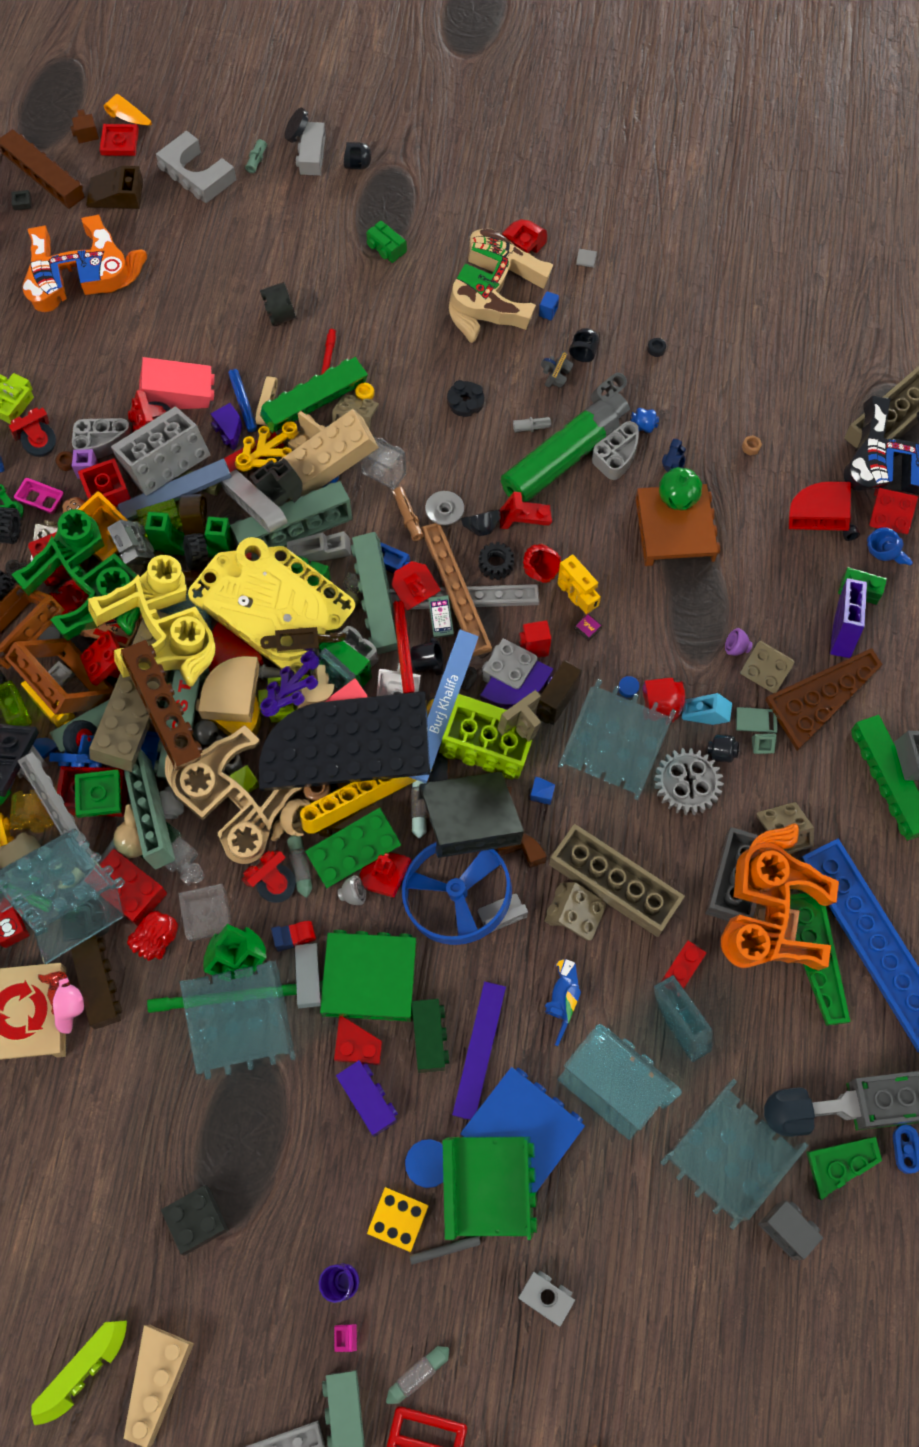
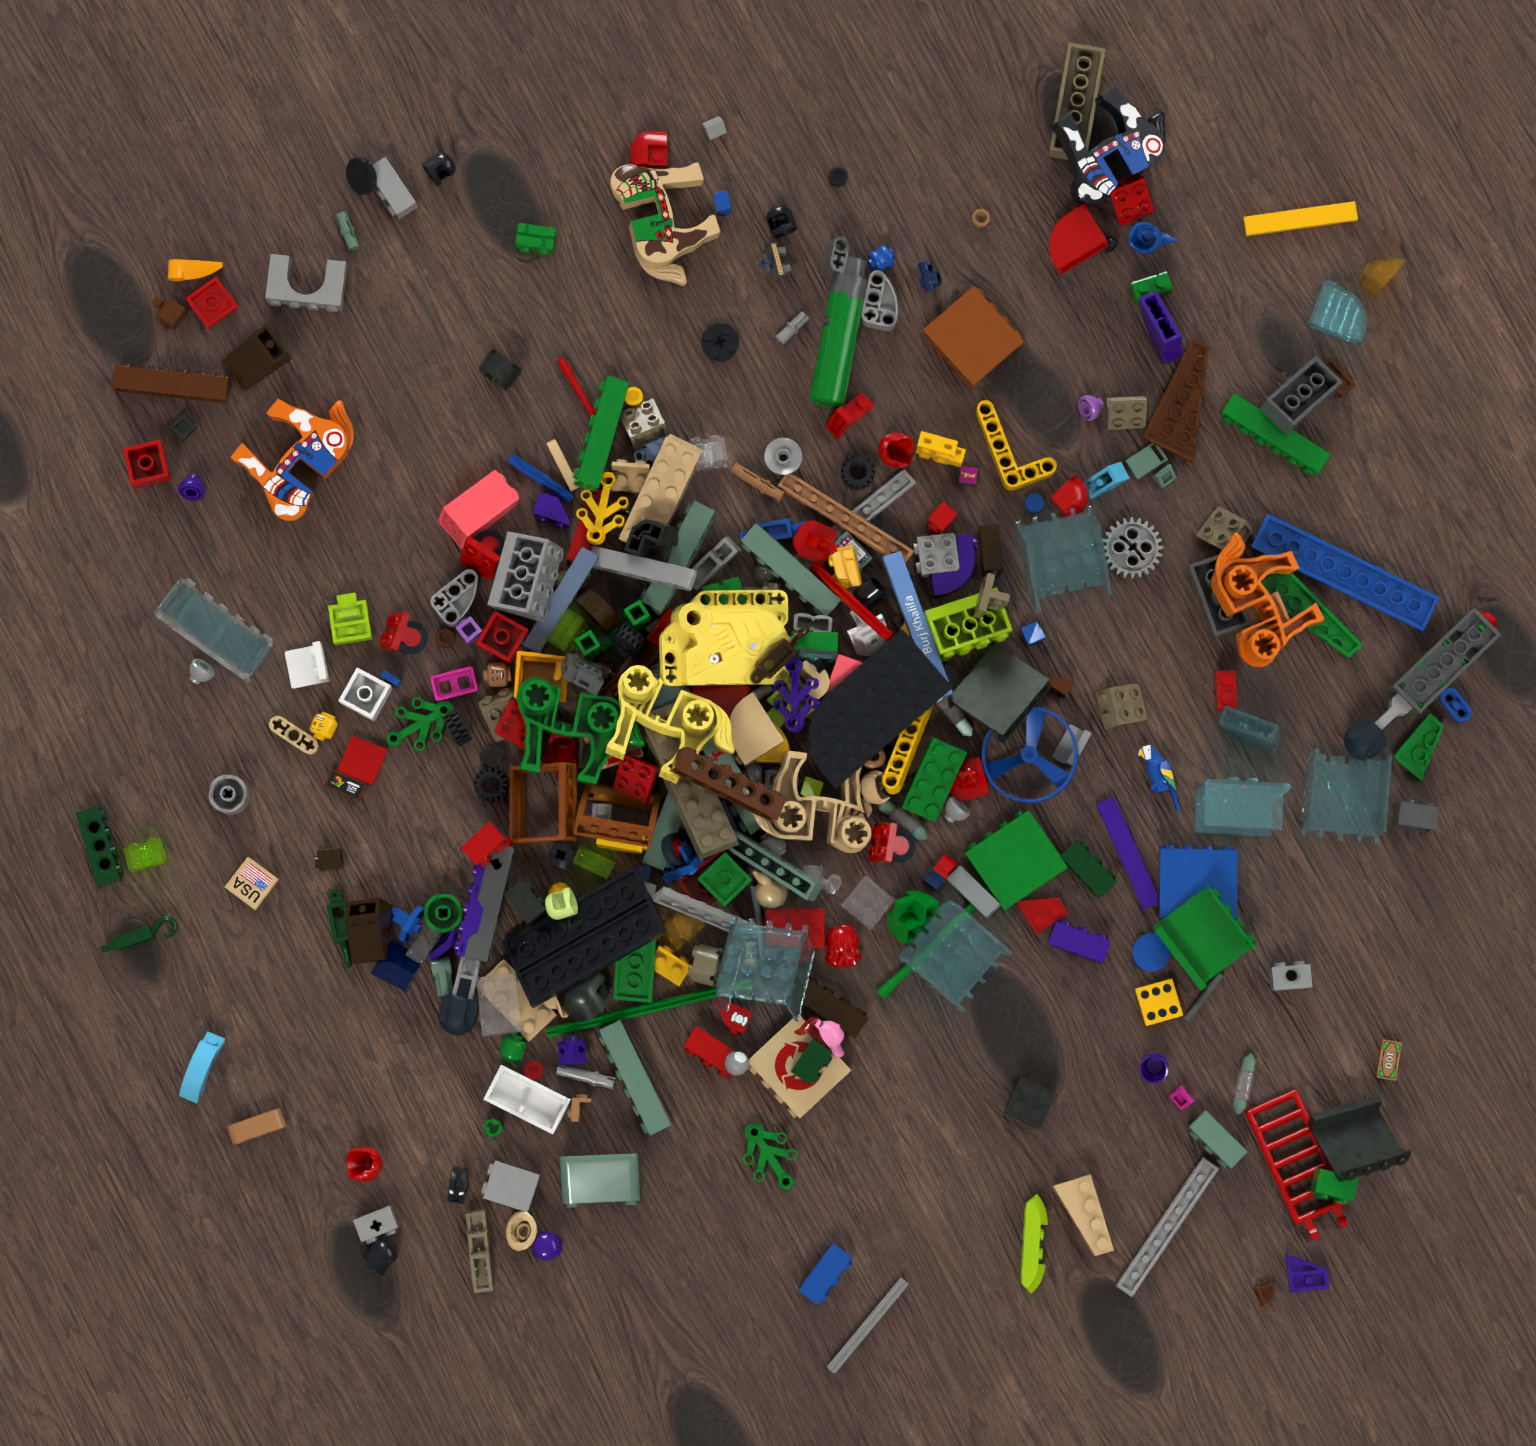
camera: 40 degrees left, 15 degrees up
(27, 1015) = (811, 1062): none -> dark green brick
(424, 621) = (846, 566): none -> yellow brick
(482, 523) = (822, 447): black piece -> none
(616, 880) = (1135, 663): dark tan brick -> none
(632, 628) = (1005, 453): none -> yellow beam
(680, 488) = (960, 310): green piece -> none
(723, 748) = (1139, 502): black head -> none

